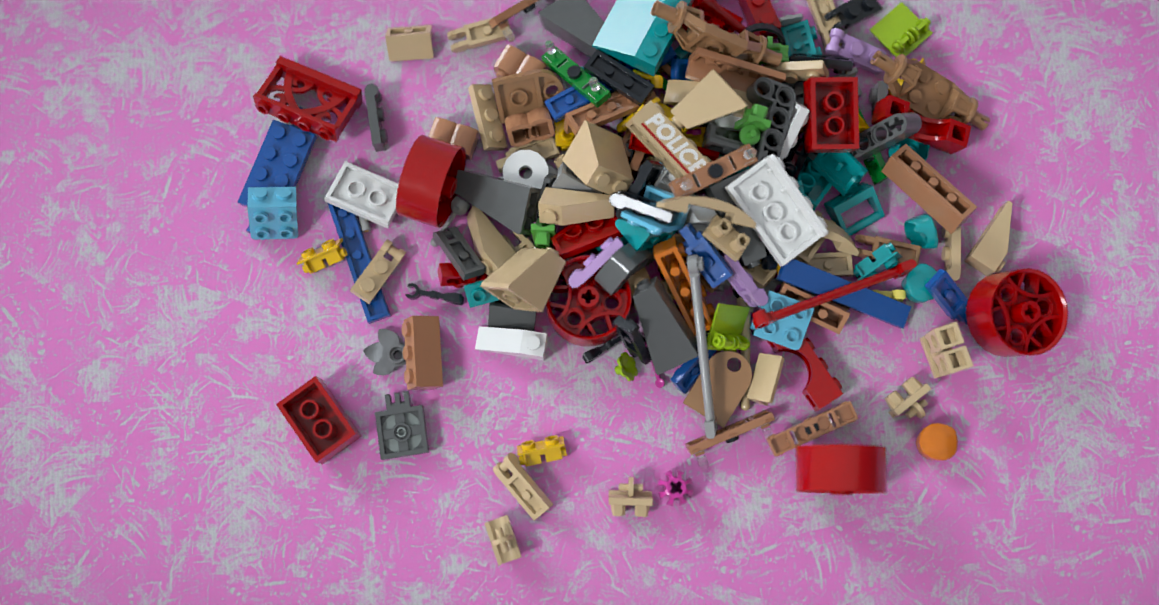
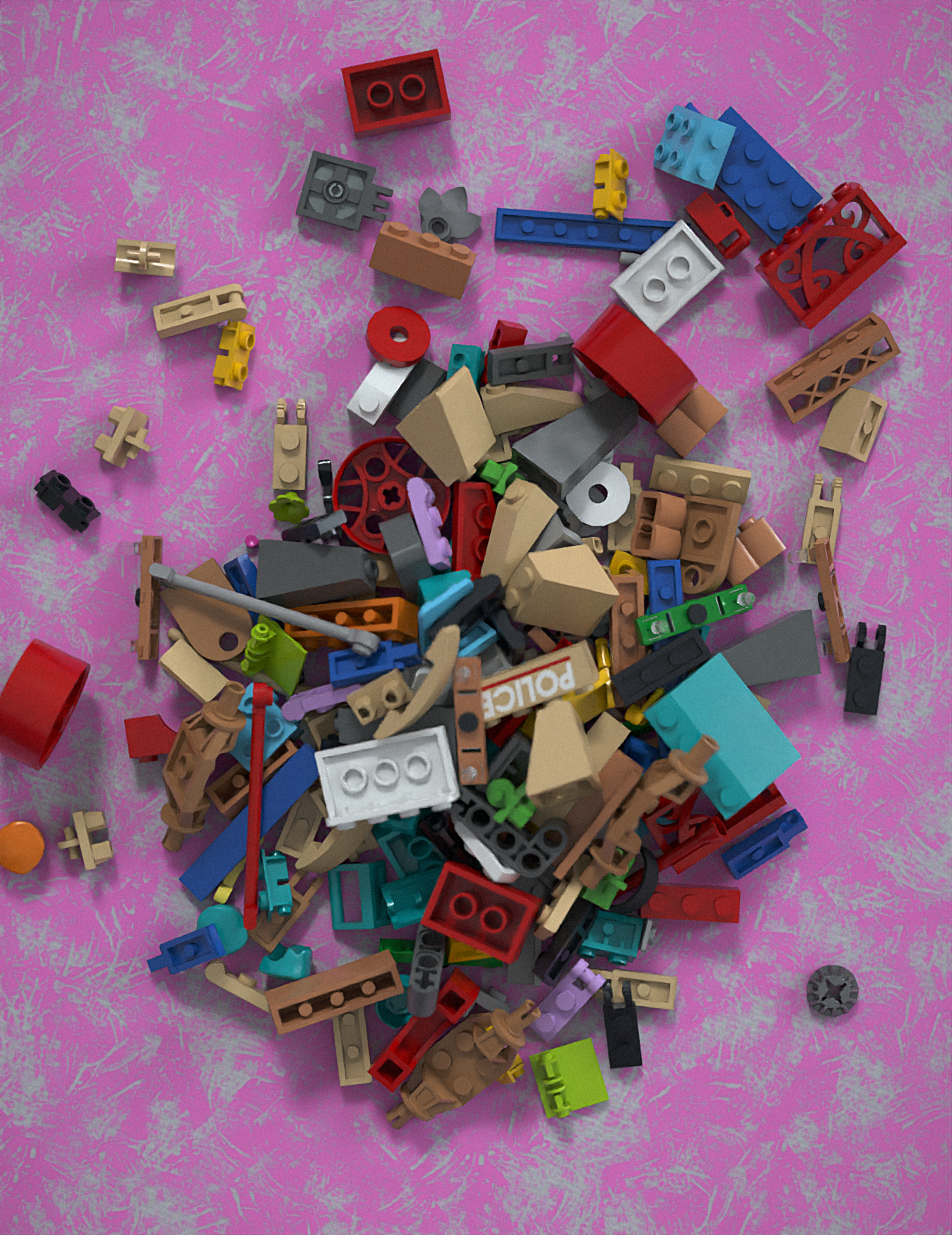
camera: 115 degrees right, 10 degrees up
(318, 177) = (716, 225): none -> red piece
(375, 70) = (831, 357): none -> nougat fence
(375, 116) = (768, 334): dark grey plate -> none
(377, 272) = (555, 247): tan plate -> none
(453, 298) = (481, 325): black piece -> none
(470, 342) = (405, 322): none -> red tile
(587, 385) = (290, 449): none -> tan hinge
(682, 487) = (120, 501): dark pink piece -> none
(686, 528) = (57, 490): none -> black hinge
(812, 428) = (104, 698): nougat piece -> none
(824, 346) = (194, 759): none -> medium nougat plate
(939, 352) = (129, 905): tan hips -> none
(958, 165) = (352, 1047): none -> tan plate
(992, 245) = (231, 1044): tan slope -> none
(1018, 313) = (127, 1022): red wheel -> none

